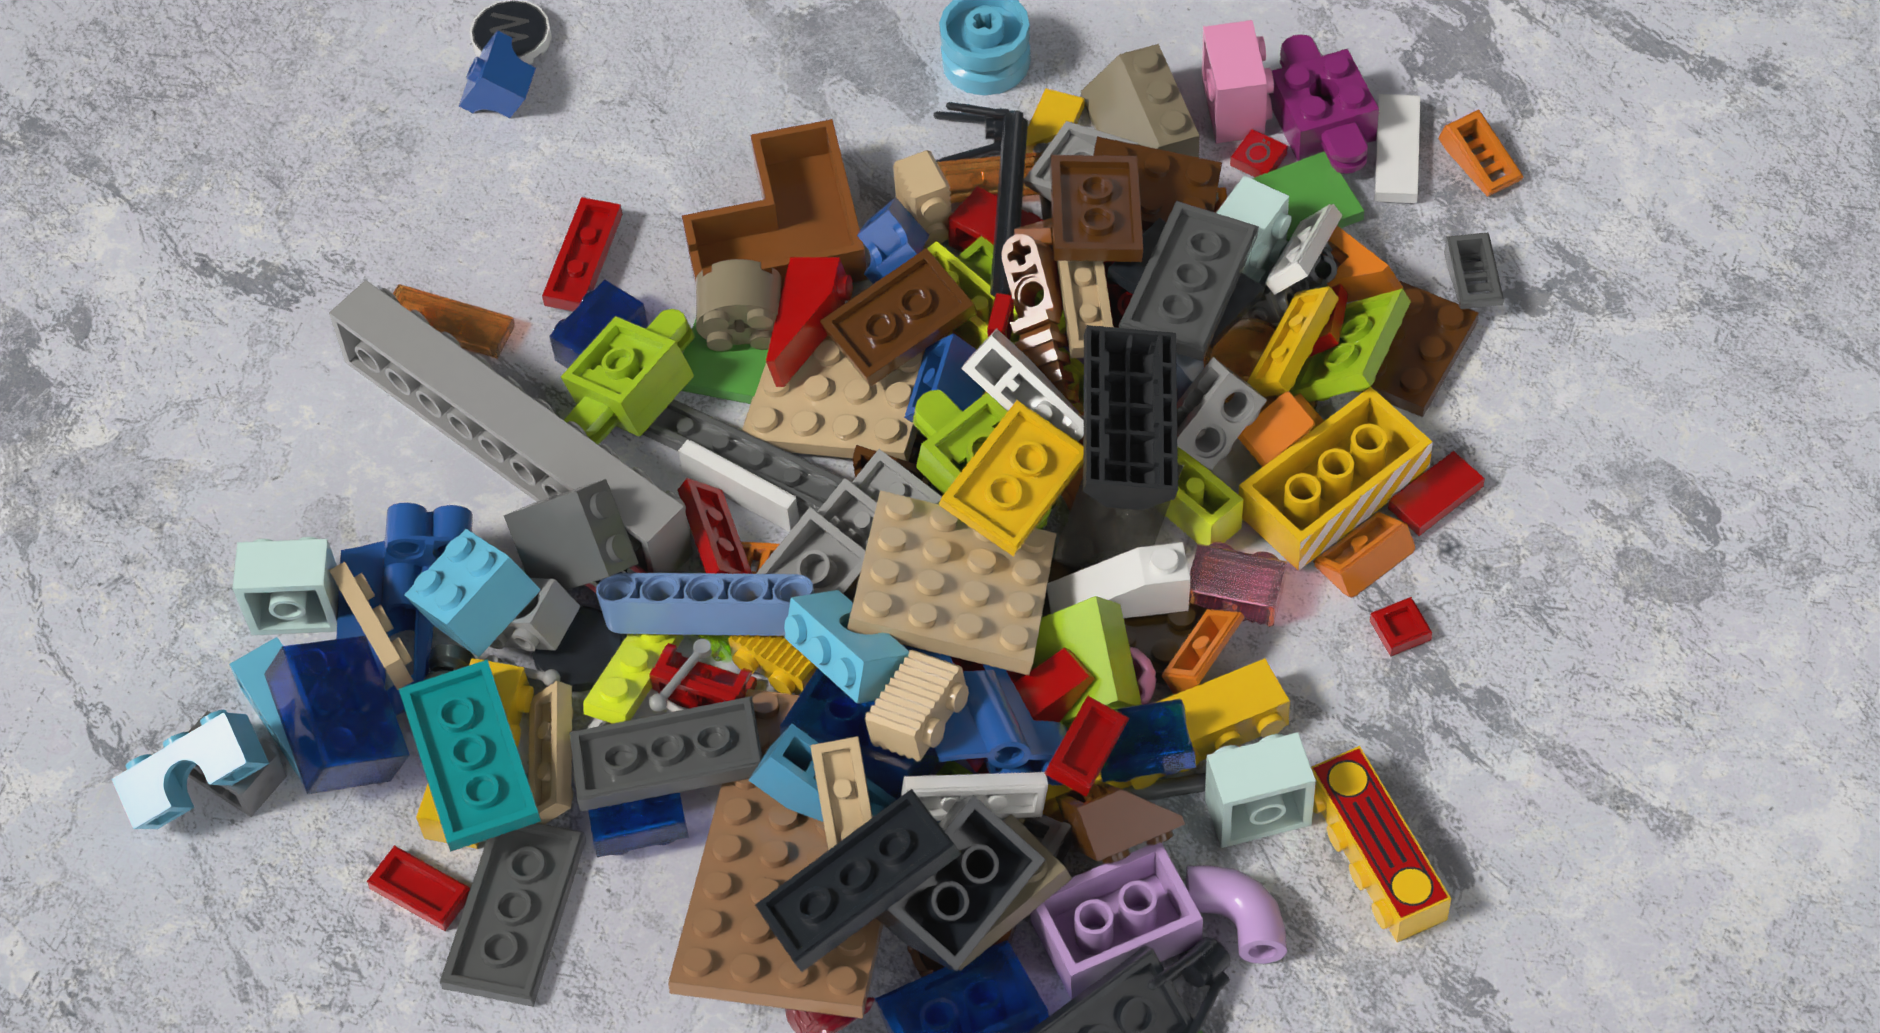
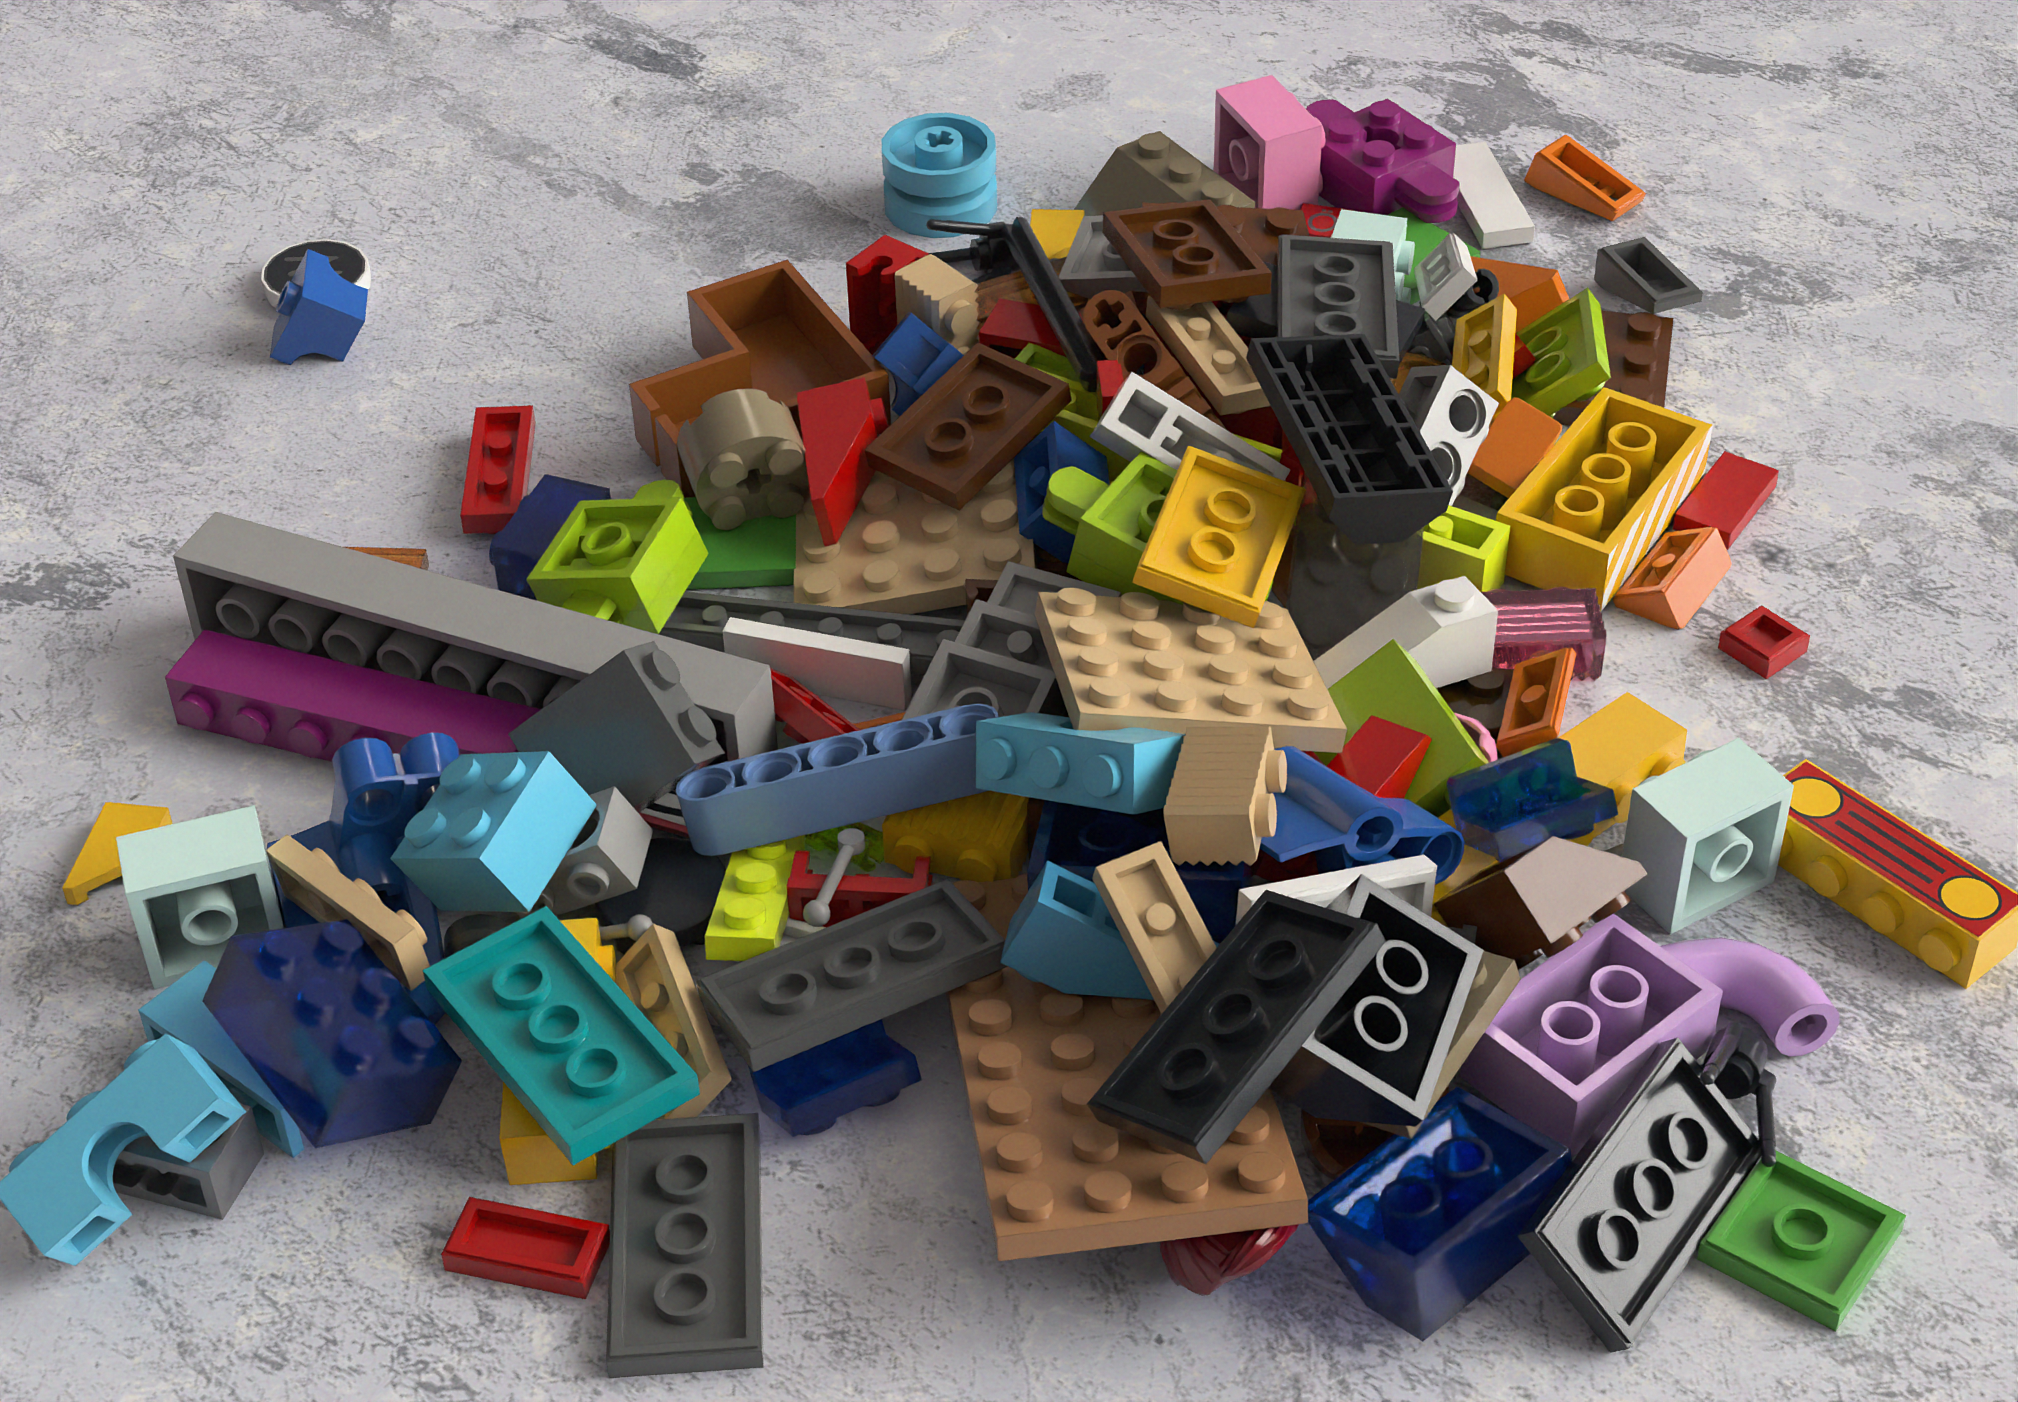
camera: 20 degrees left, 15 degrees down
(255, 518) = (100, 856): none -> yellow tile
(421, 452) = (323, 703): none -> magenta brick
(880, 157) = (873, 289): none -> red hinge
(1086, 746) = (1470, 807): red tile -> none

